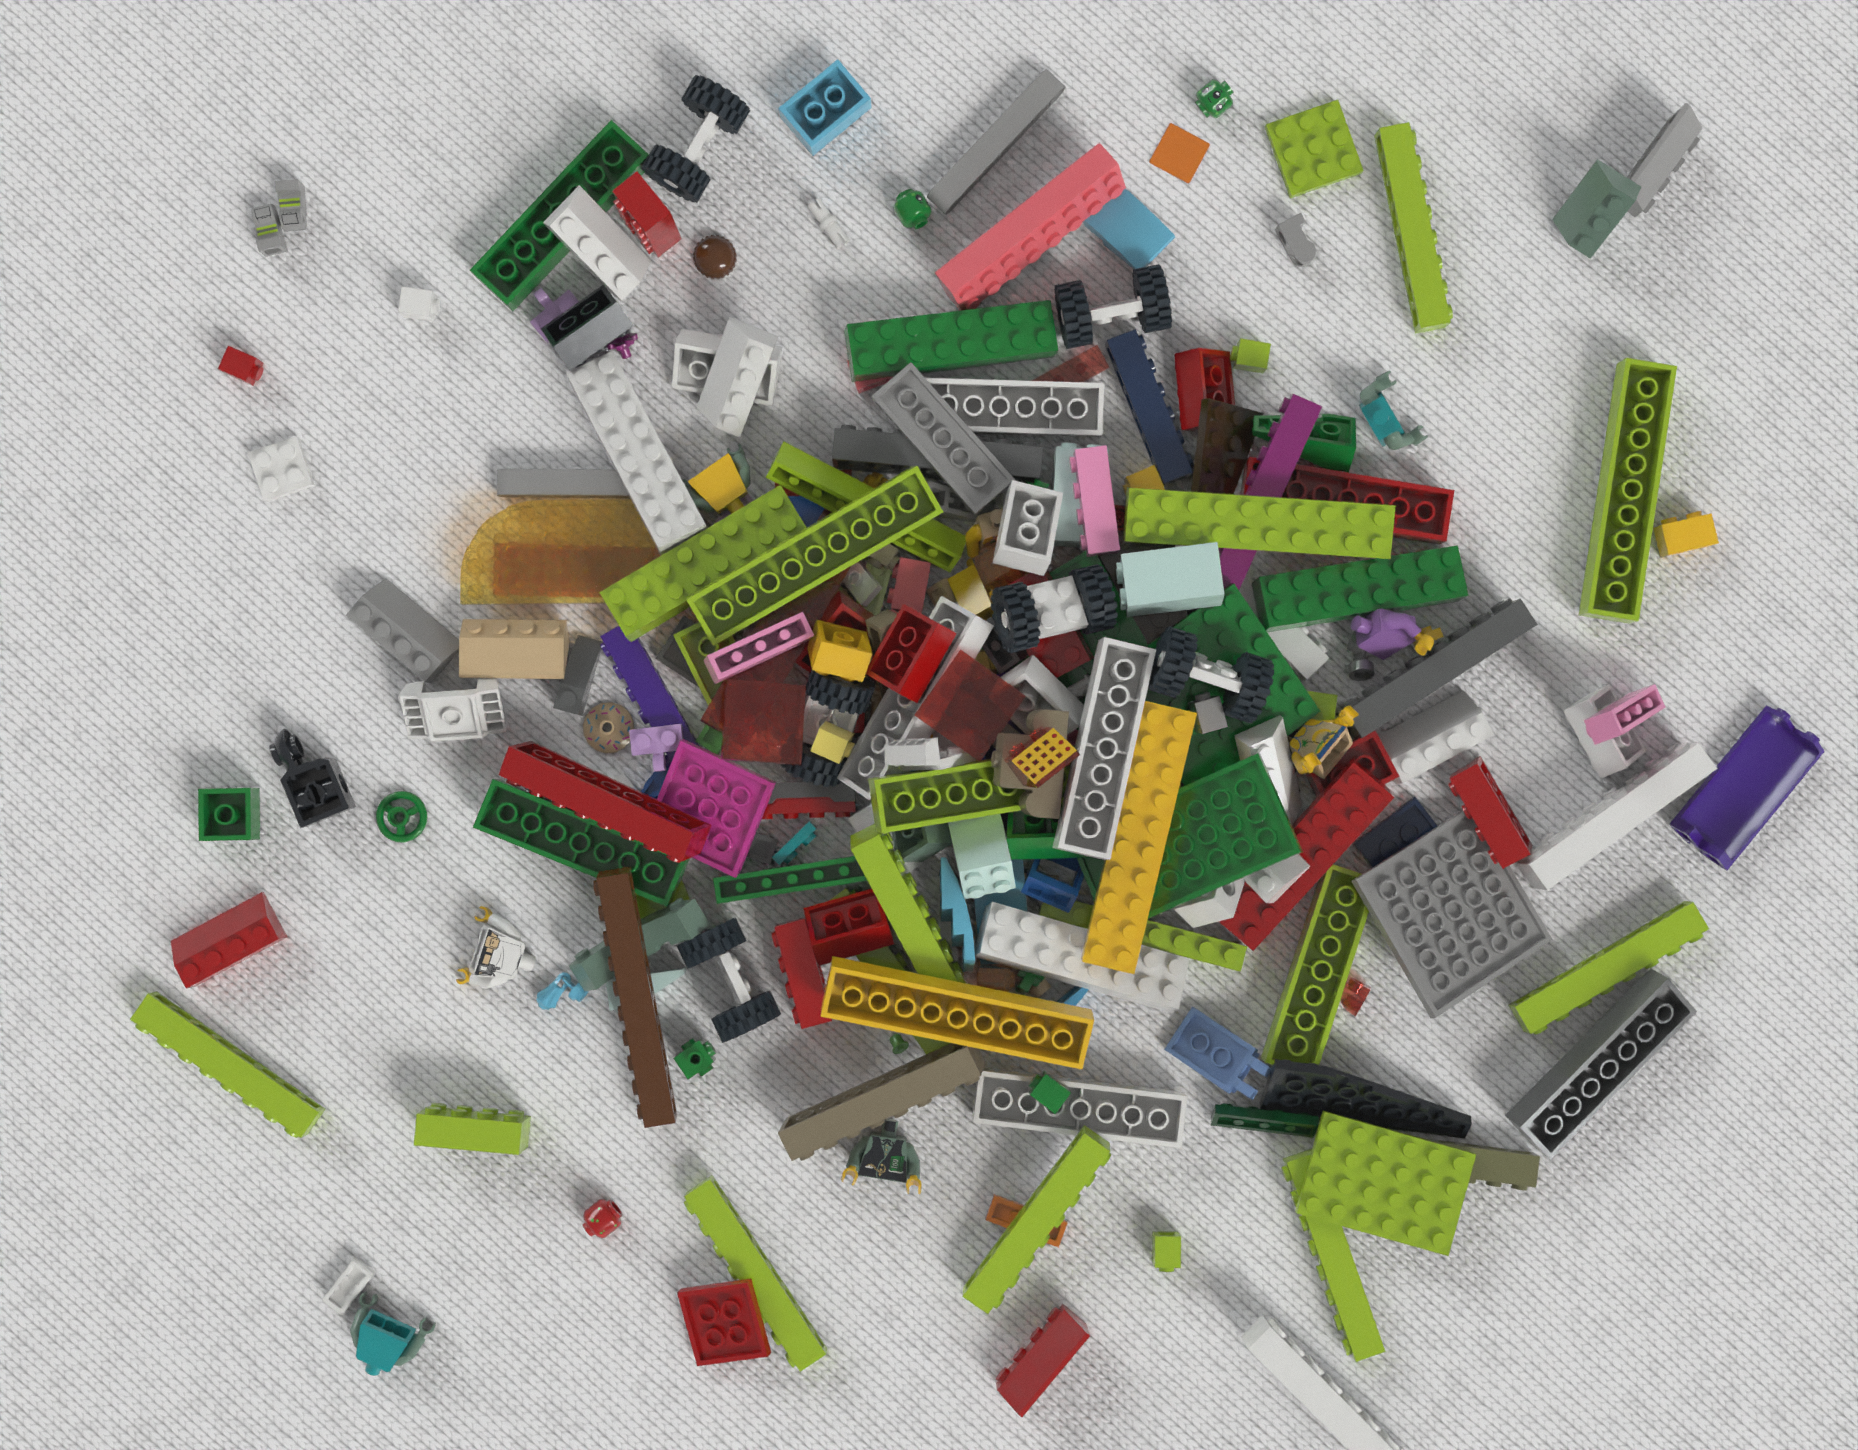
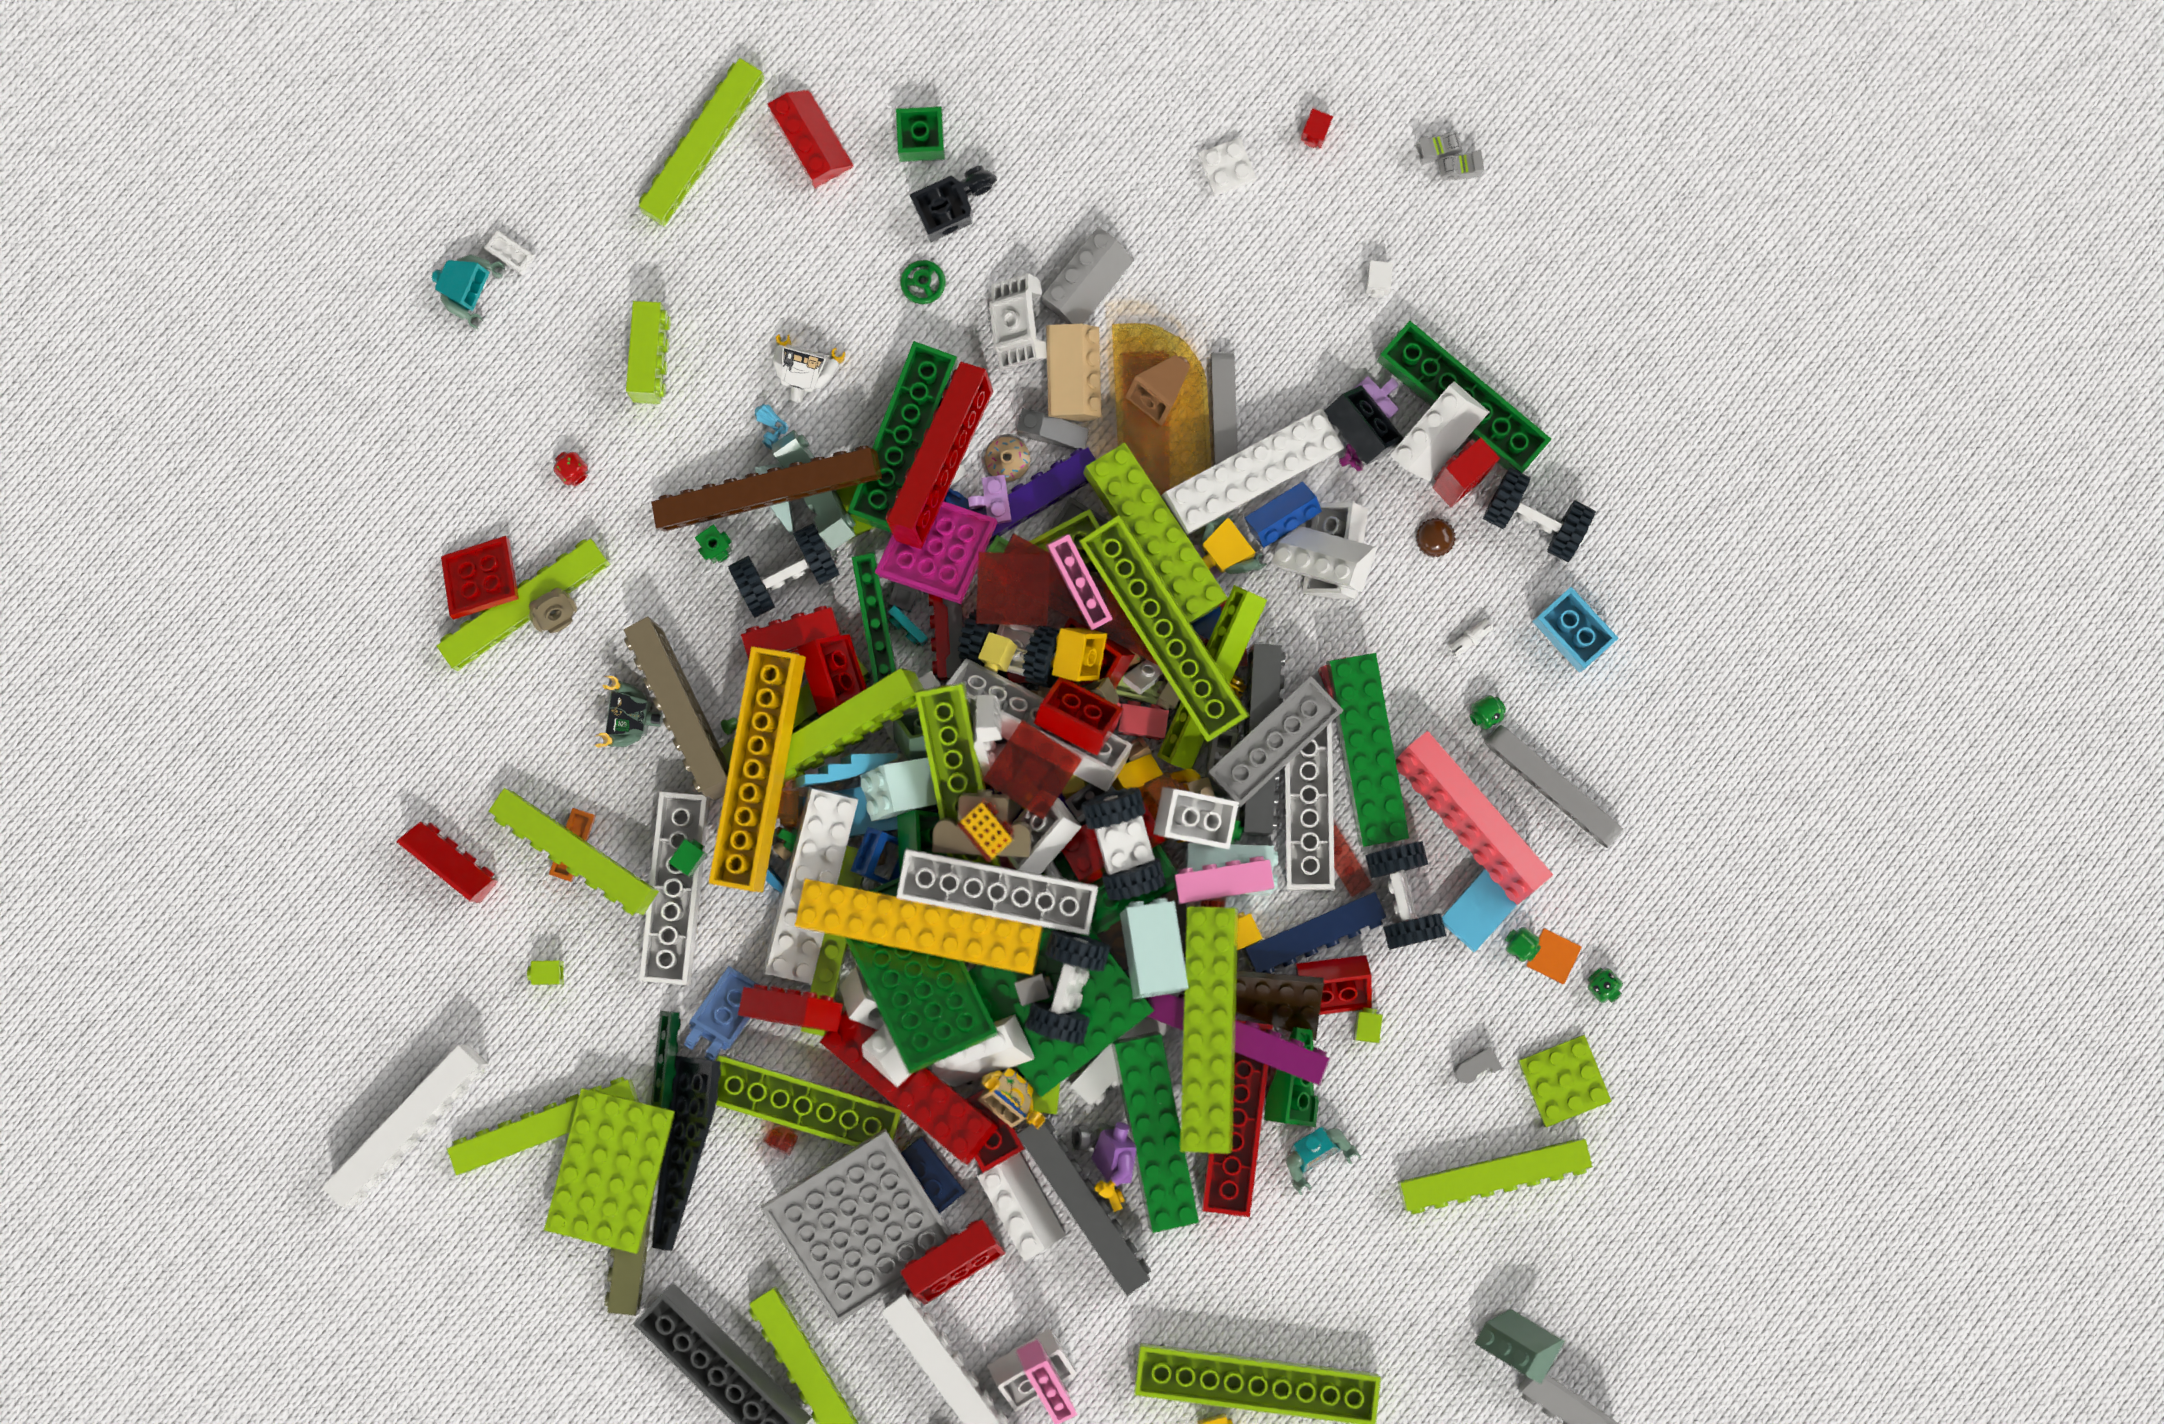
camera: 90 degrees right, 5 degrees down
(537, 551) = (1158, 387): none -> medium nougat slope
(684, 422) = (1283, 514): none -> blue brick
(754, 1235) = (554, 600): none -> dark tan plate
(1168, 184) = (1522, 944): none -> green head
(1219, 981) = (790, 1007): none -> red brick

